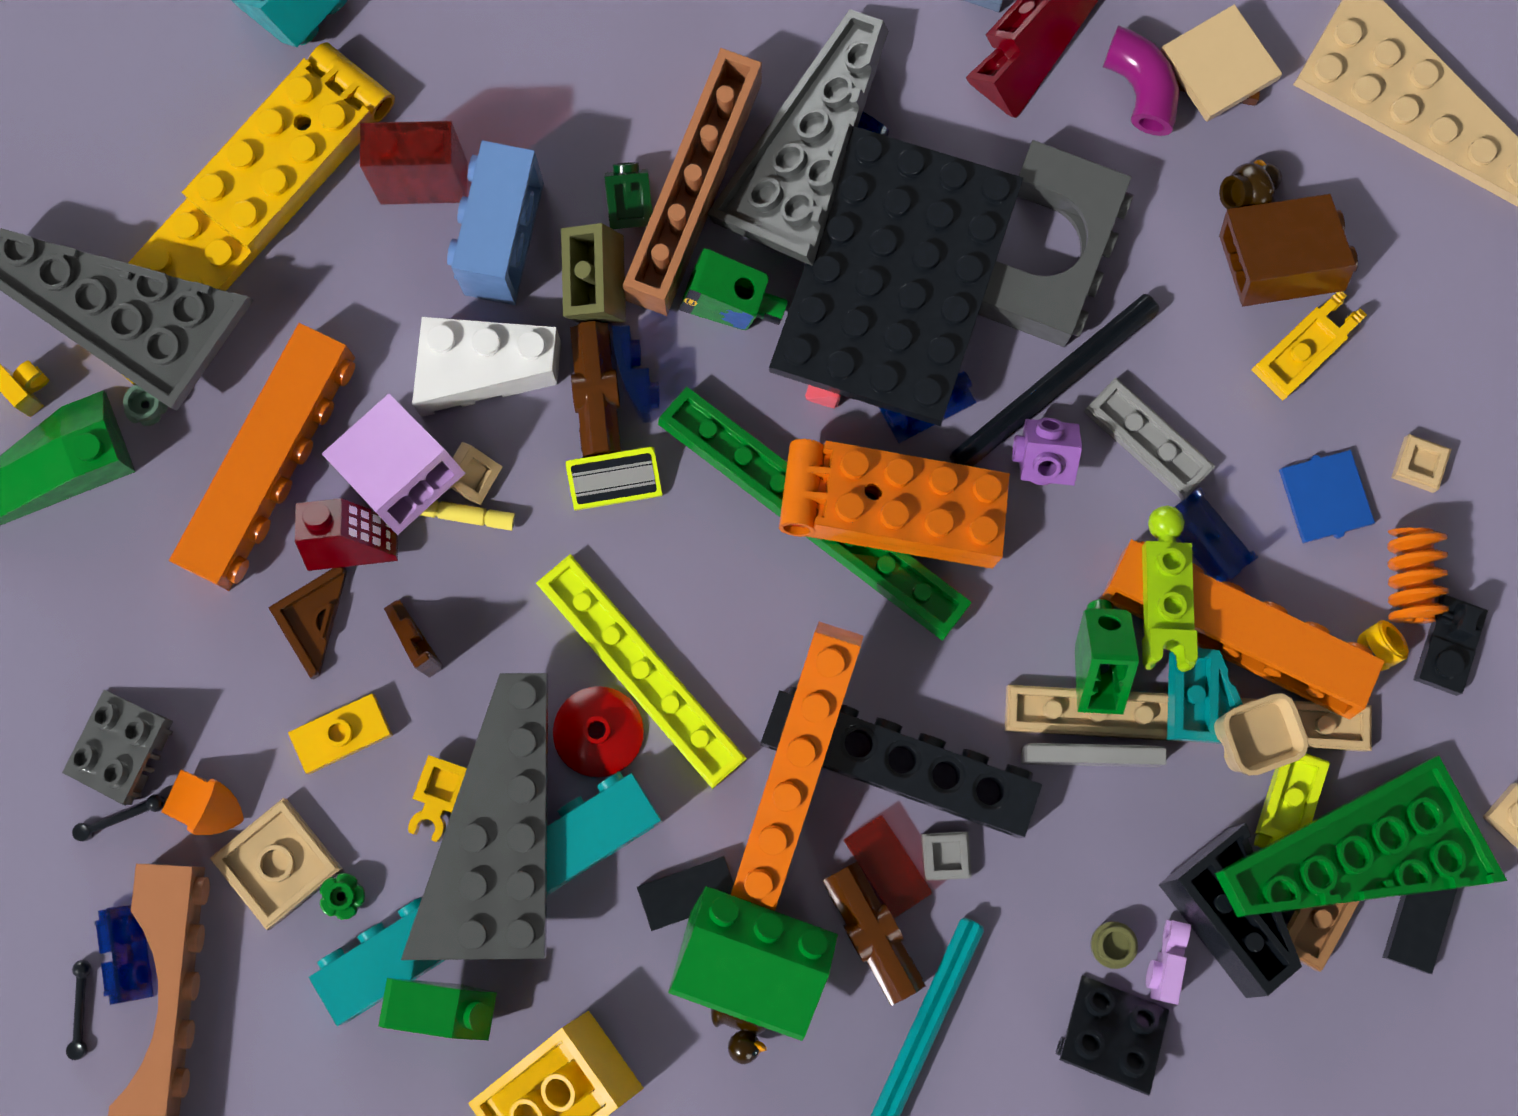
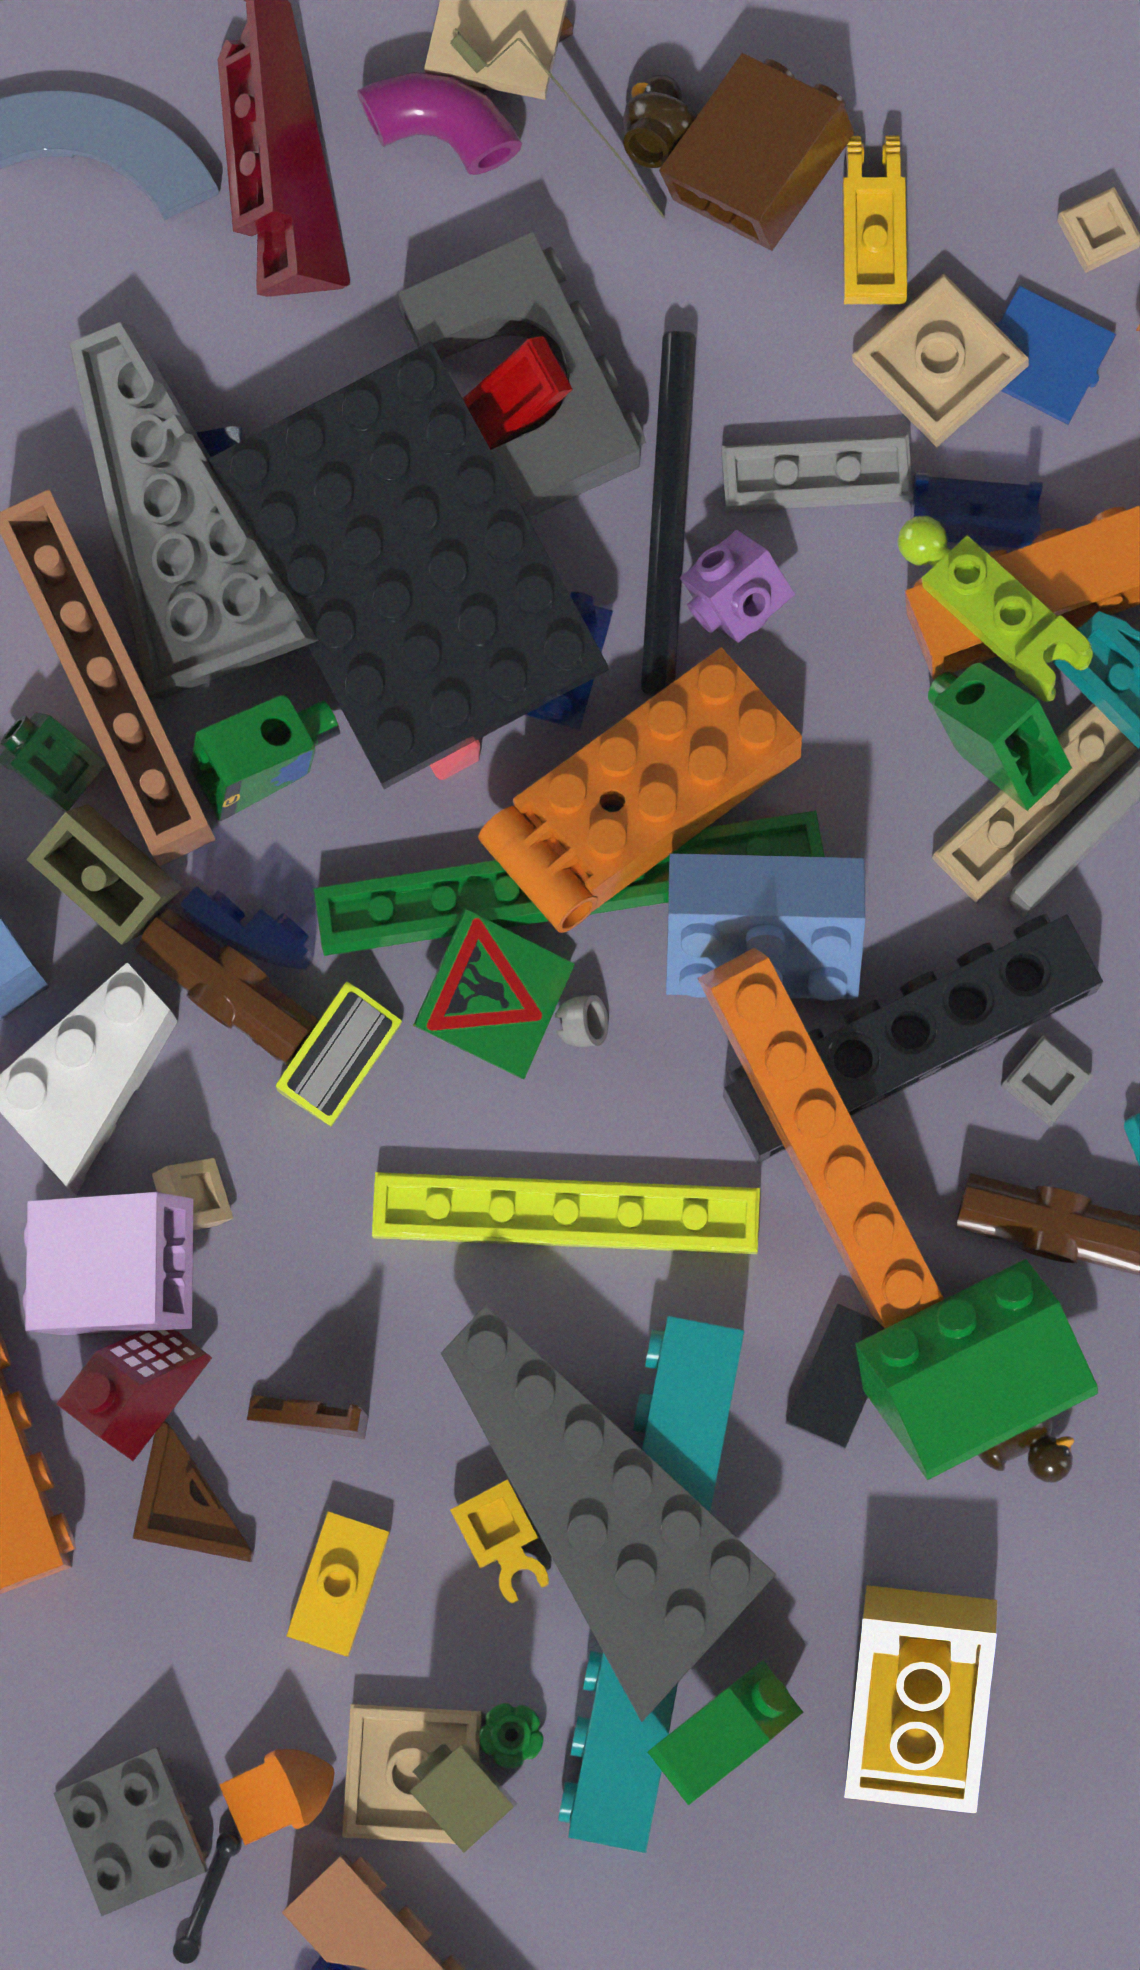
camera: 40 degrees left, 0 degrees up
(276, 901) = (460, 1794): none -> olive brick
(470, 515) = (238, 1235): light yellow wheel -> none
(613, 750) = (595, 1349): red dish -> none
(717, 527) = (494, 994): none -> green piece
(748, 586) = (583, 1021): none -> light grey hinge
(887, 866) = (1002, 1148): clear red tile -> none
(902, 637) = (788, 907): none -> medium blue brick
(1040, 247) = (518, 393): none -> red tile
(1190, 70) = (477, 64): none -> olive piece
(1271, 445) = (940, 360): none -> tan tile

